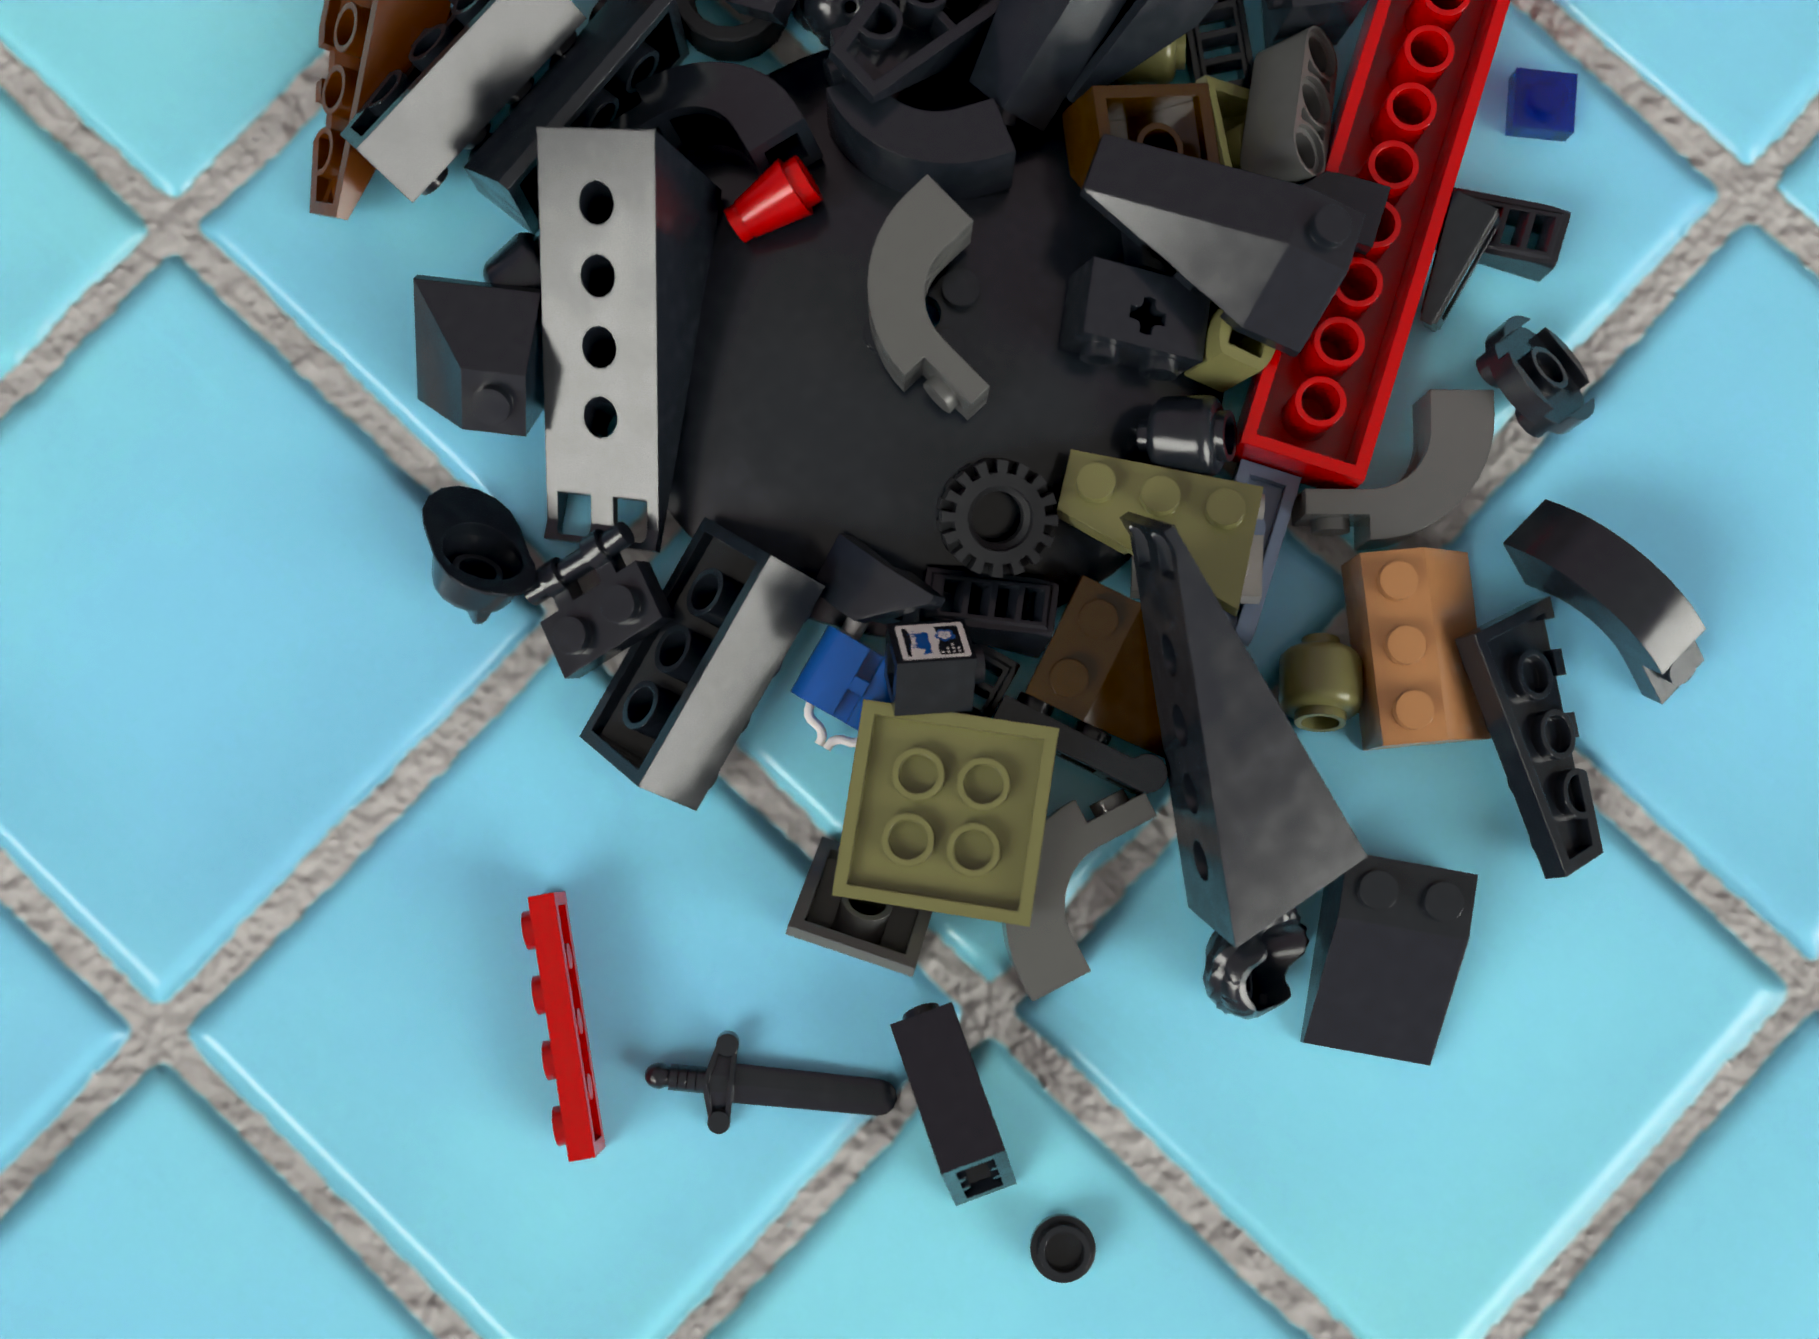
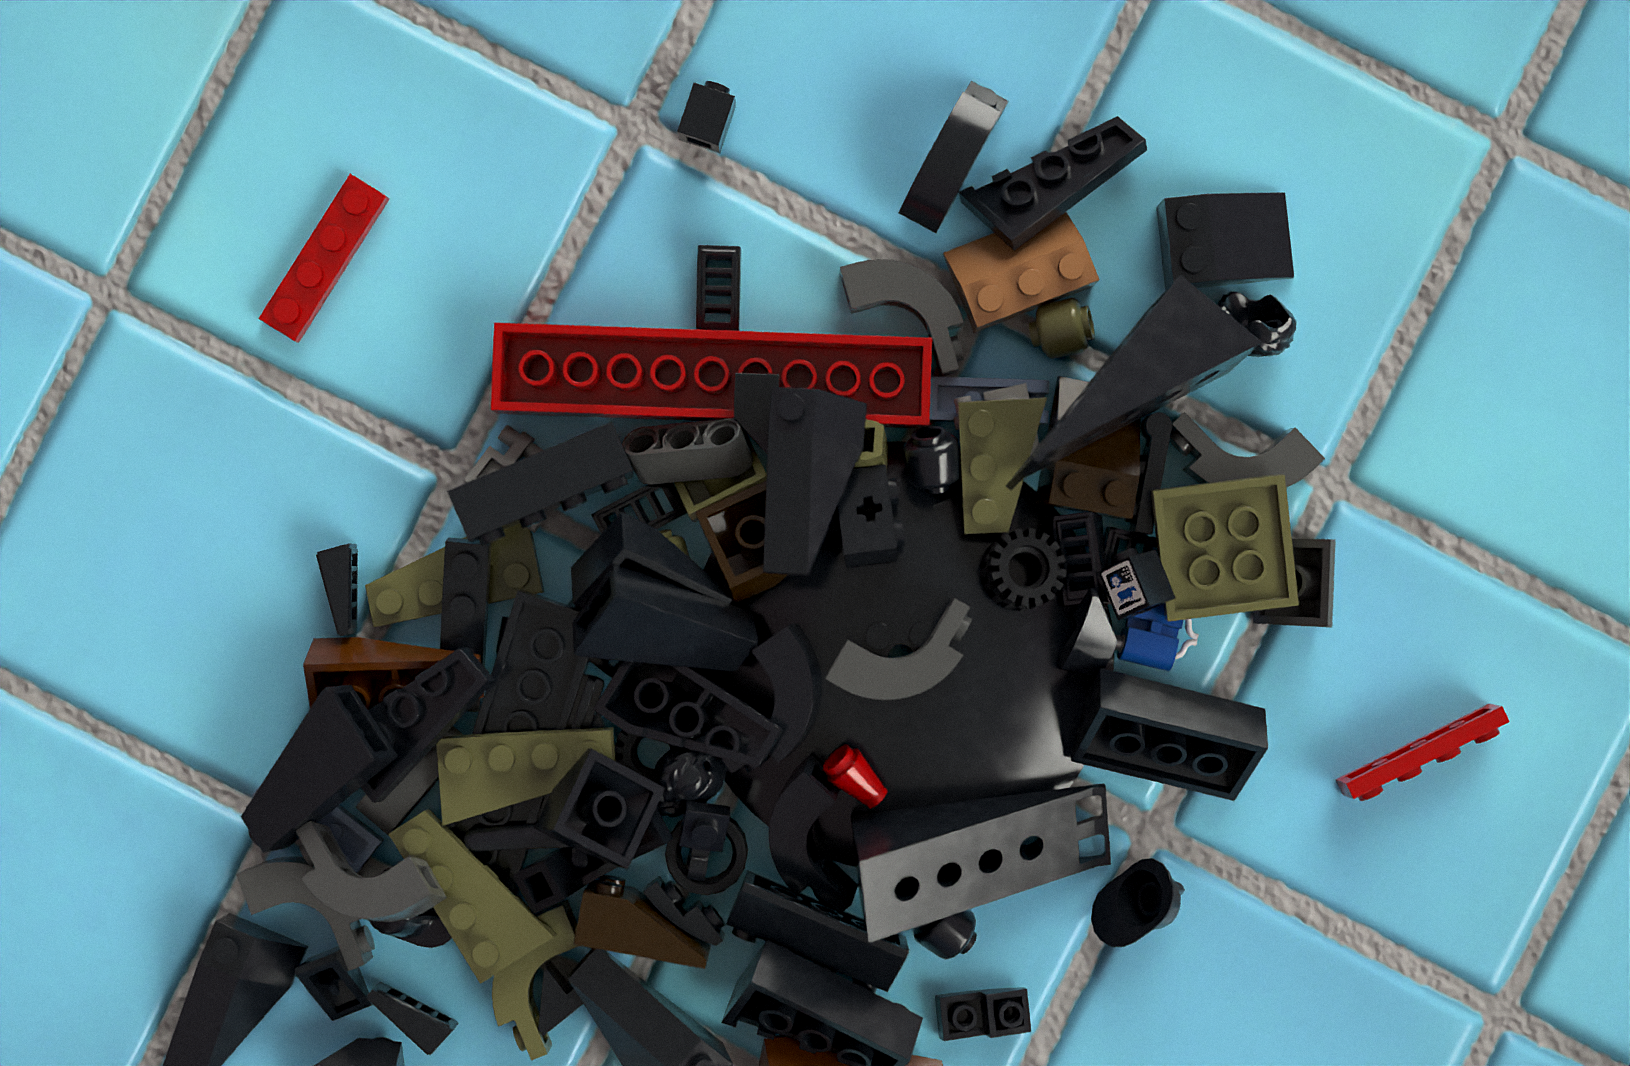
camera: 100 degrees left, 5 degrees up
(386, 316) = (983, 1013): none -> black slope
(479, 353) = (1009, 941): black slope -> none
(607, 617) = (1156, 803): black plate -> none
(731, 1082) = (1426, 637): black sword -> none
(952, 1102) = (1400, 491): black slope -> none
(1062, 1248) = (1467, 395): black plate -> none
(1462, 242) = (745, 313): black slope -> none
(1536, 377) = (820, 259): black plate -> none
(1541, 104) = (618, 281): clear blue plate -> none
(1745, 279) = (707, 116): none -> black brick

